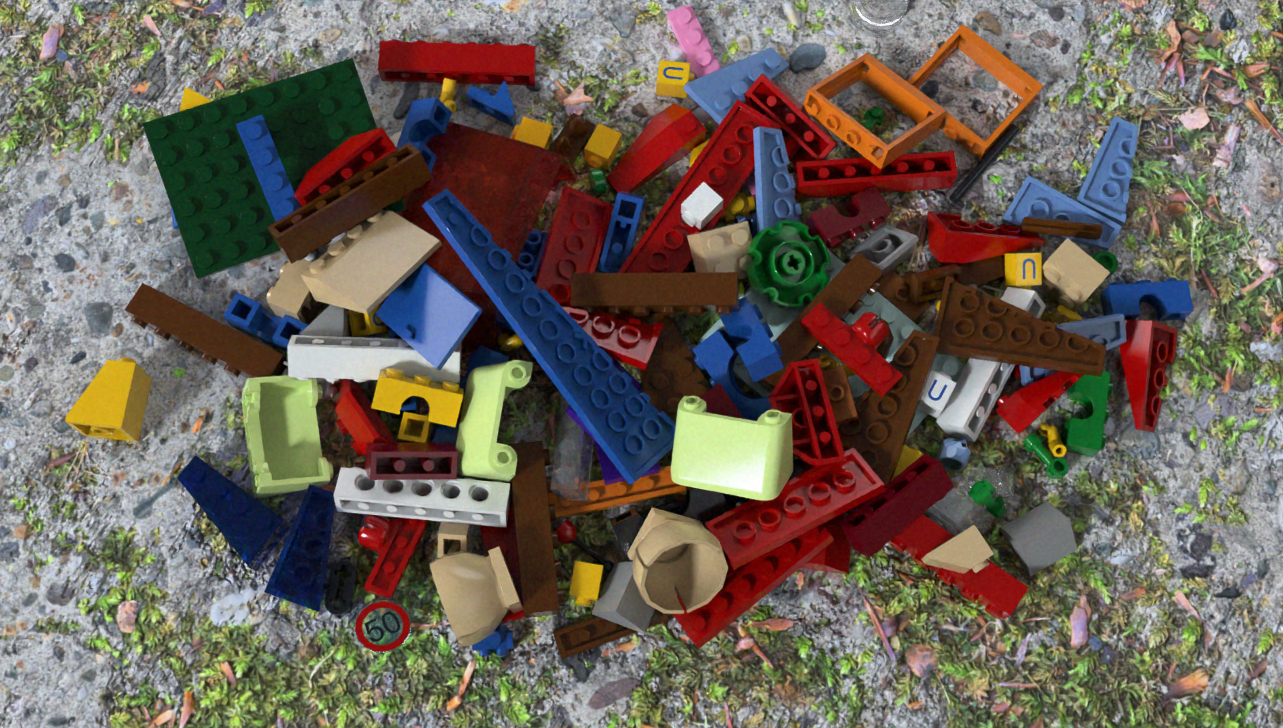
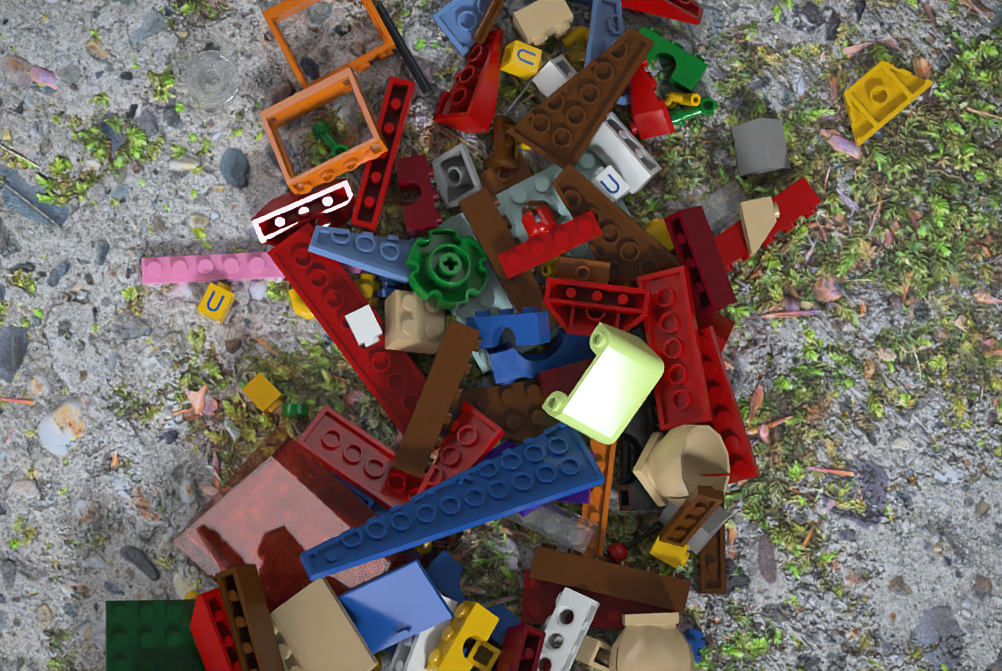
camera: 70 degrees left, 10 degrees up
(424, 121) = (178, 554): blue arch -> none
(447, 94) = (161, 526): yellow arm -> none
(462, 62) = (125, 501): red brick -> none
(476, 442) = (499, 590): yellowish green windscreen -> none
(496, 106) = (186, 475): blue slope -> none
(534, 133) = (229, 455): yellow brick -> none
(573, 137) = (243, 420): reddish brown tile -> none
(622, 231) = (354, 405): blue slope -> none
(626, 578) = (691, 515): none -> reddish brown plate
(660, 145) = (276, 337): red wedge -> none
(723, 87) = (246, 255): medium blue wing -> none
(954, 454) = (664, 190): light blue rock -> none
(982, 271) = (508, 97): reddish brown tile -> none
(982, 492) = (713, 180): green bar -> none
(1000, 478) = (701, 168): clear piece -> none
(1146, 645) = (880, 97): none -> yellow wing

